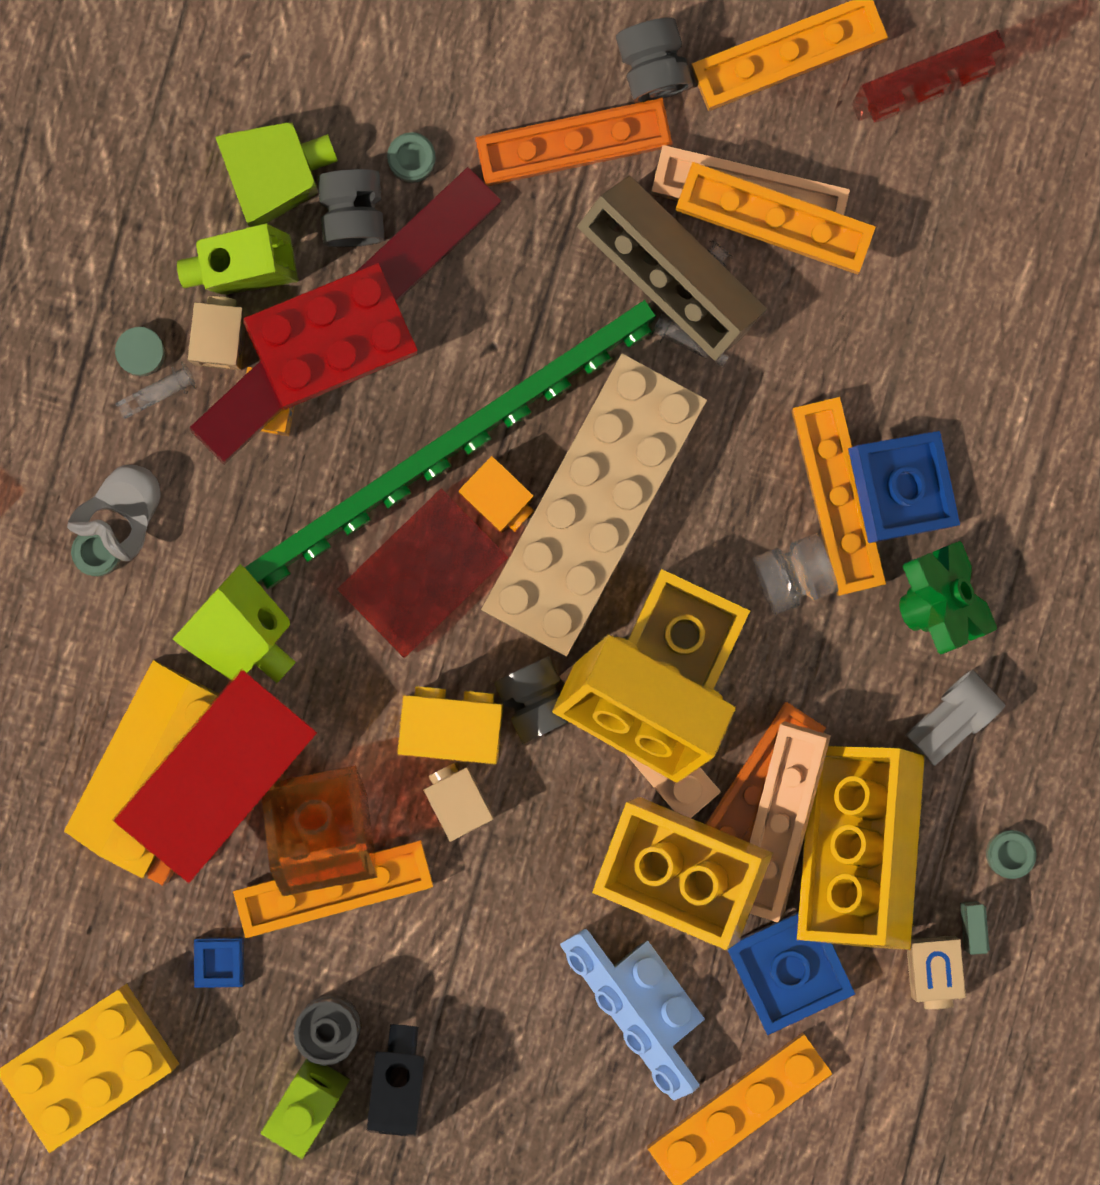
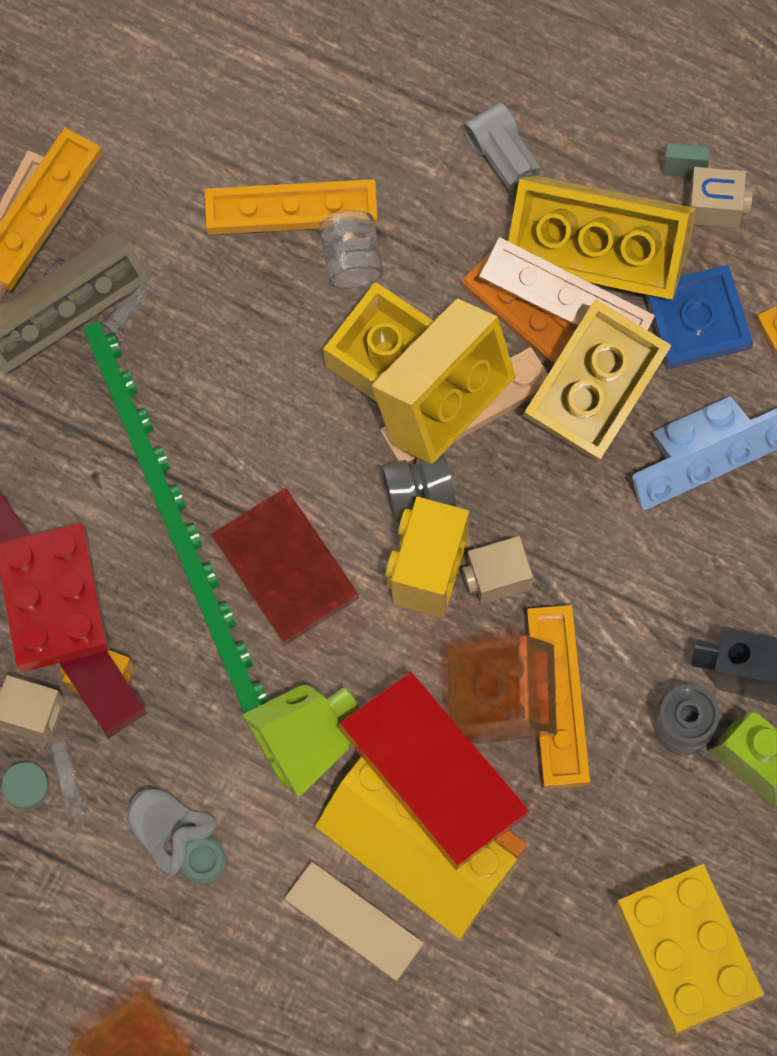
camera: 75 degrees left, 15 degrees down
(61, 720) = (354, 922): none -> tan tile
(219, 962) = (608, 816): blue tile -> none
(498, 496) = (229, 487): light orange brick -> none
(594, 505) = (256, 406): tan brick -> none
(904, 486) = (293, 150): blue plate -> none
(944, 599) = (398, 133): green plant -> none
(1011, 854) = (627, 125): sand green tile -> none

